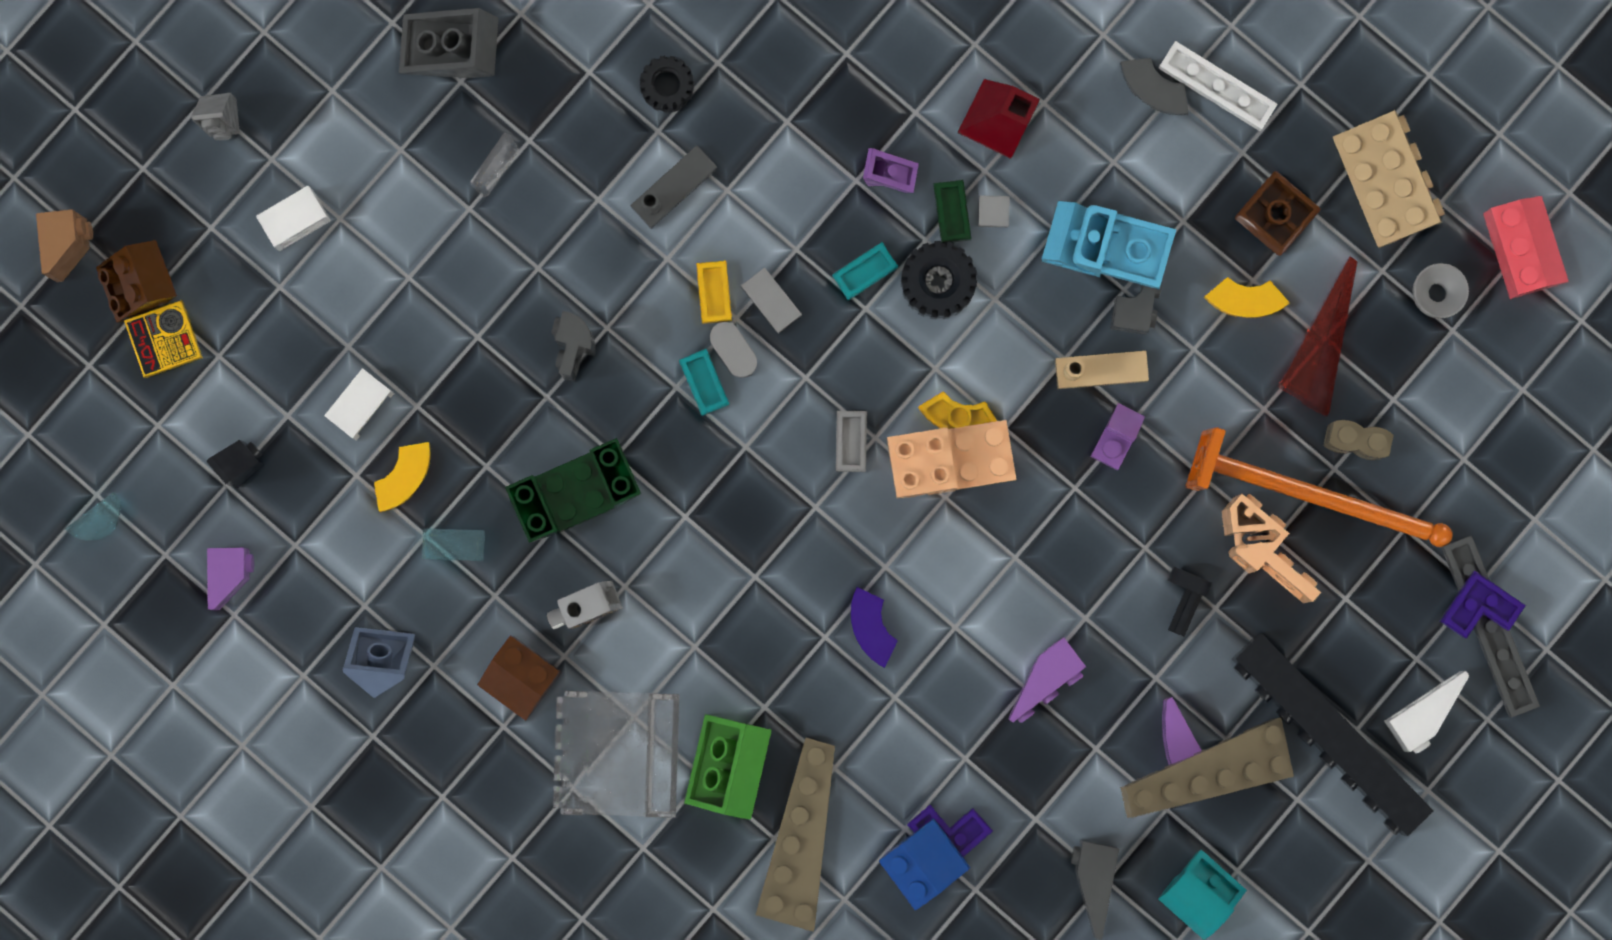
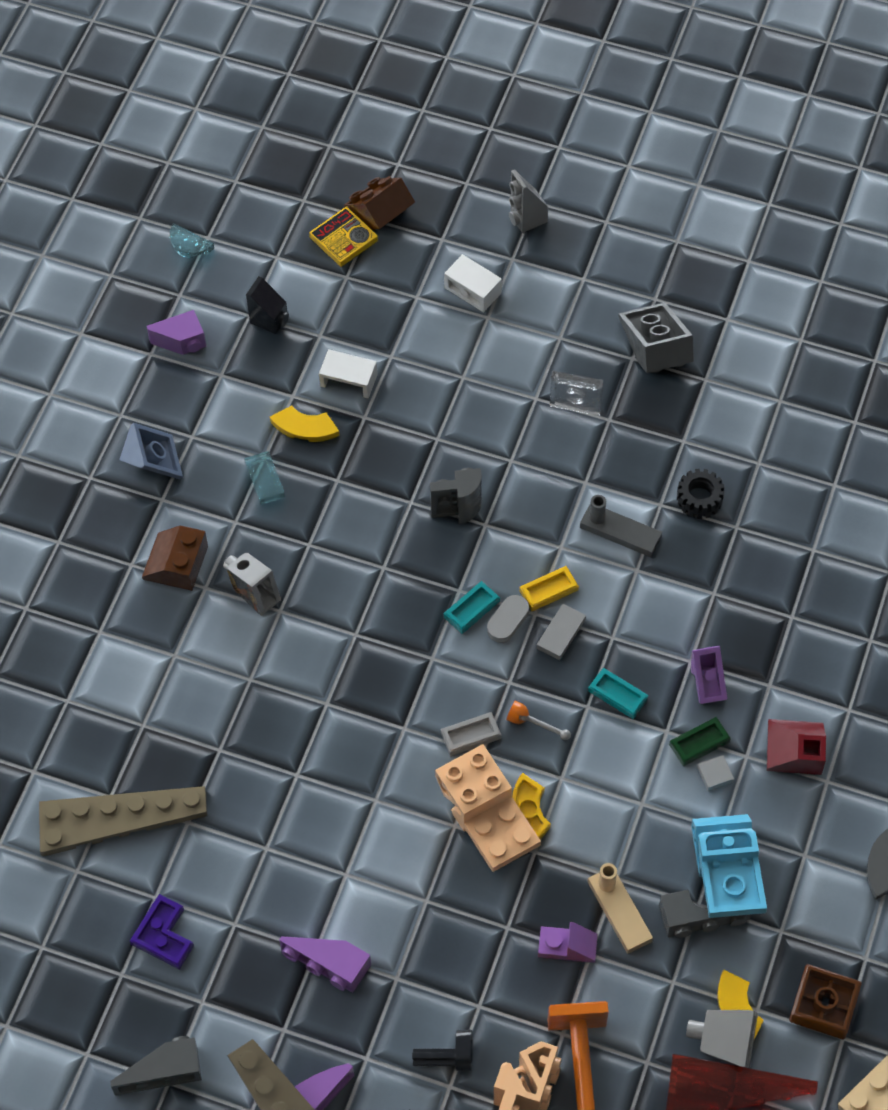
camera: 70 degrees right, 25 degrees down
(62, 241) = (385, 144): medium nougat slope -> none
(573, 491) = (337, 540): dark green slope -> none
(617, 754) = (136, 641): clear slope -> none
(727, 767) = (157, 736): bright green slope -> none
(851, 382) = (519, 714): none -> hinge
(869, 628) = (319, 803): dark purple tile -> none
(924, 864) = (127, 914): blue slope -> none
(946, 261) = (636, 732): black bush -> none
(1276, 324) = (726, 1035): none -> light grey torso

